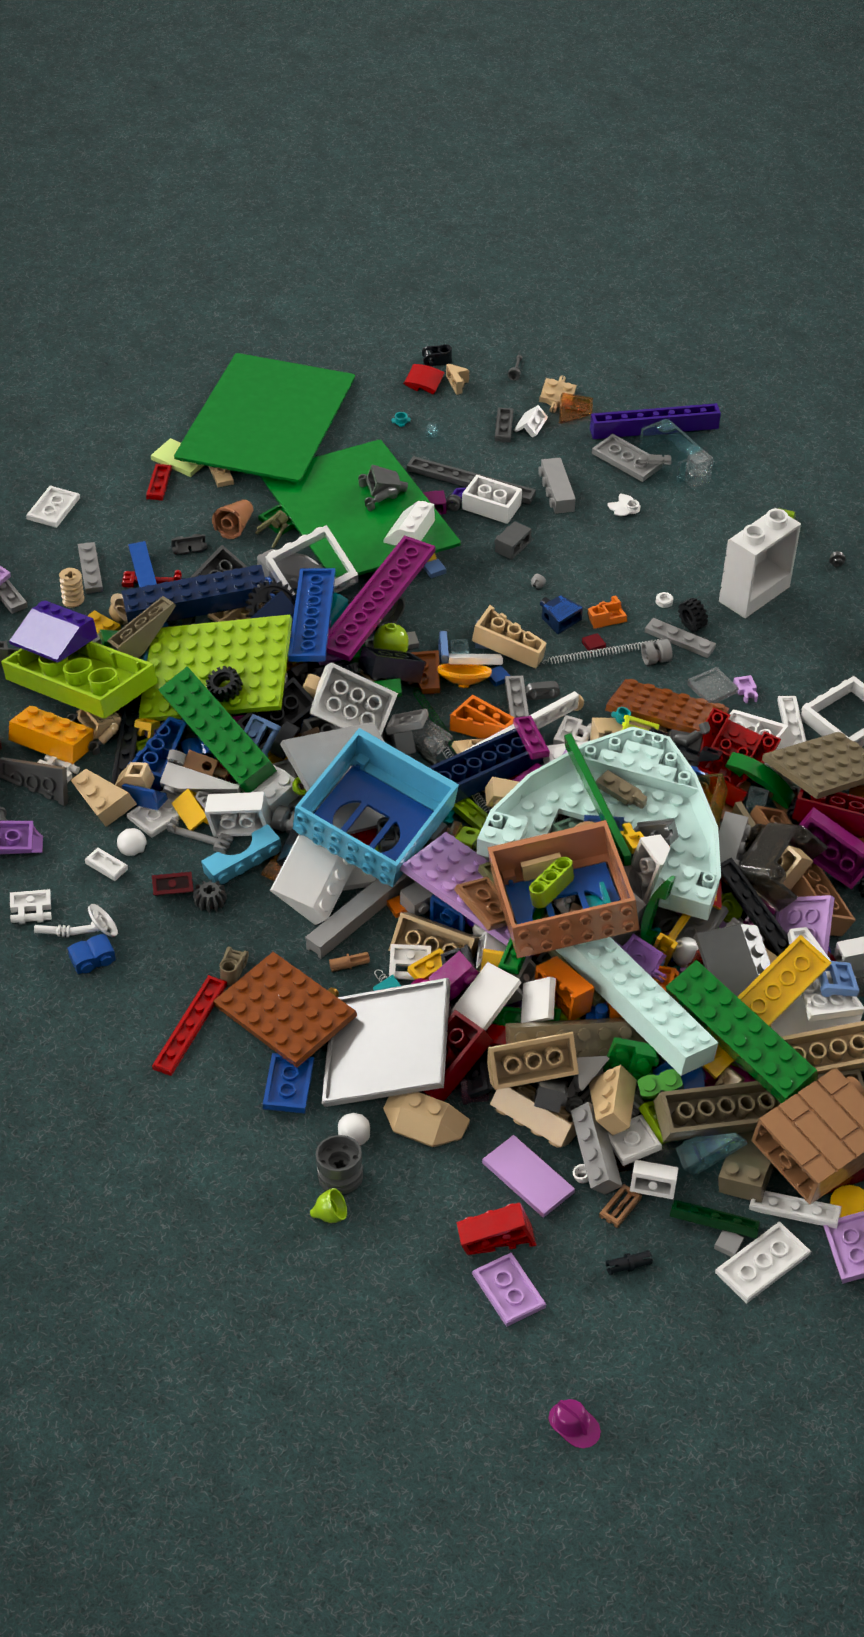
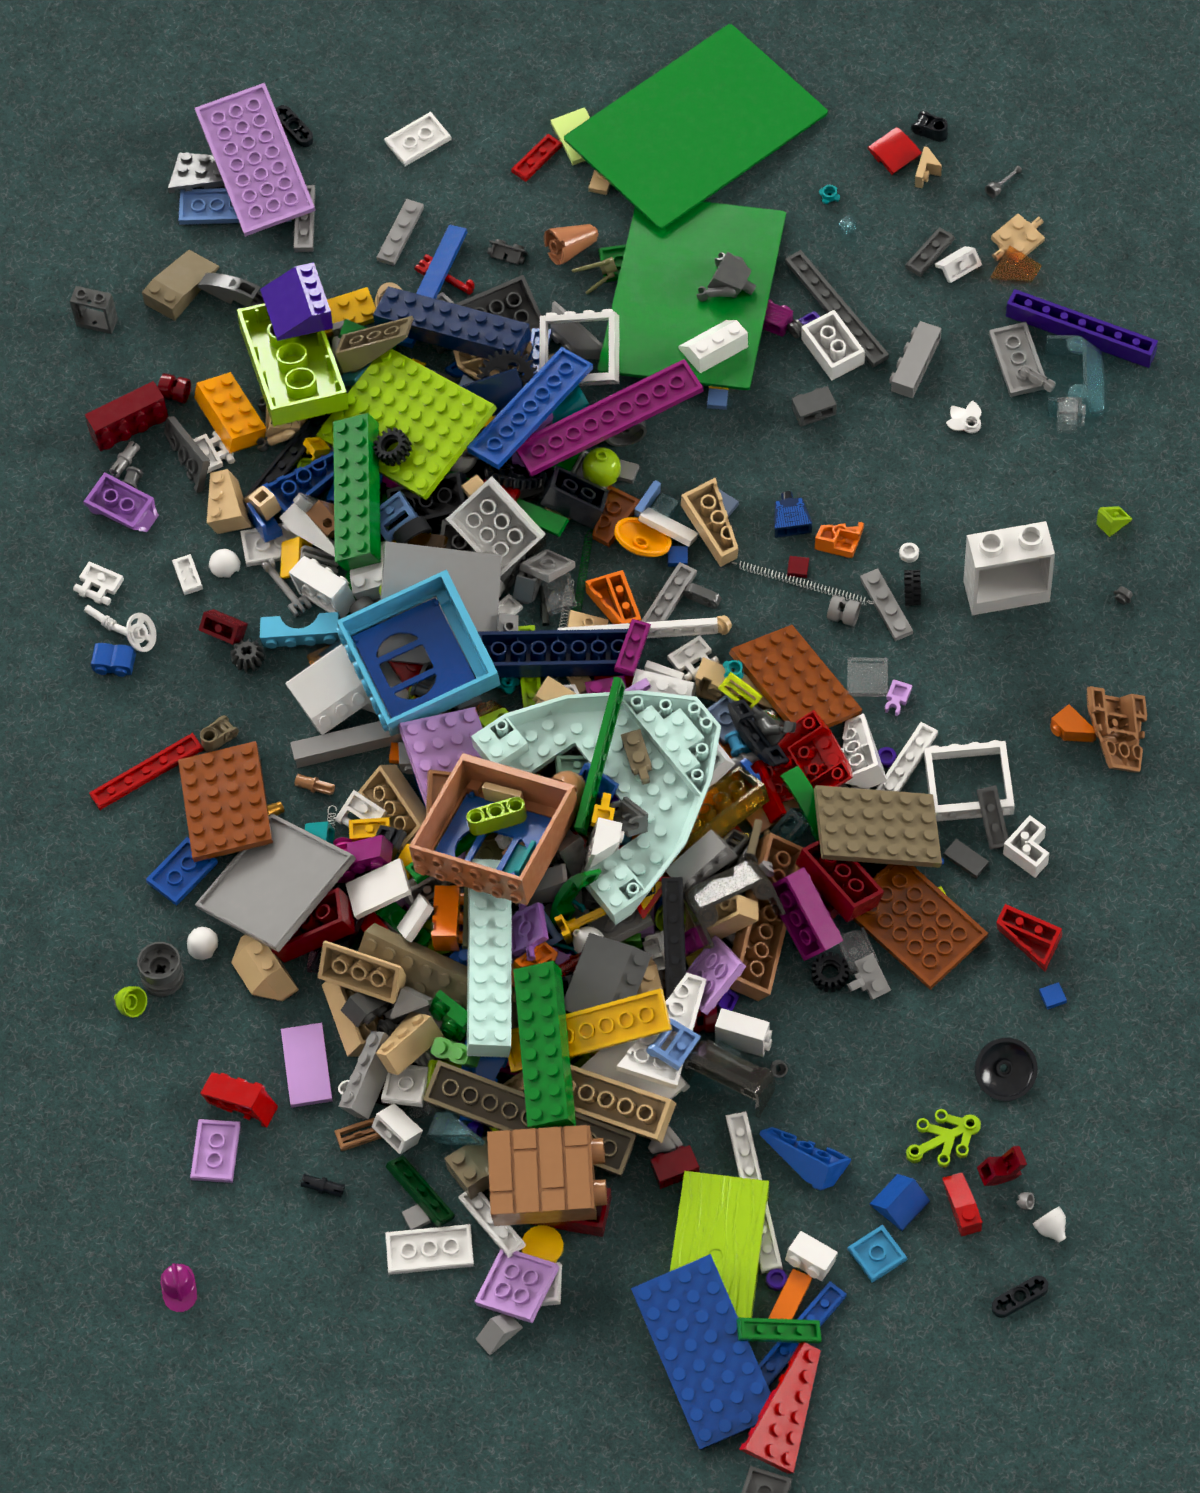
camera: 40 degrees right, 15 degrees up
(71, 587) = (358, 252): tan piece -> none
(538, 581) = (801, 465): light grey hinge -> none

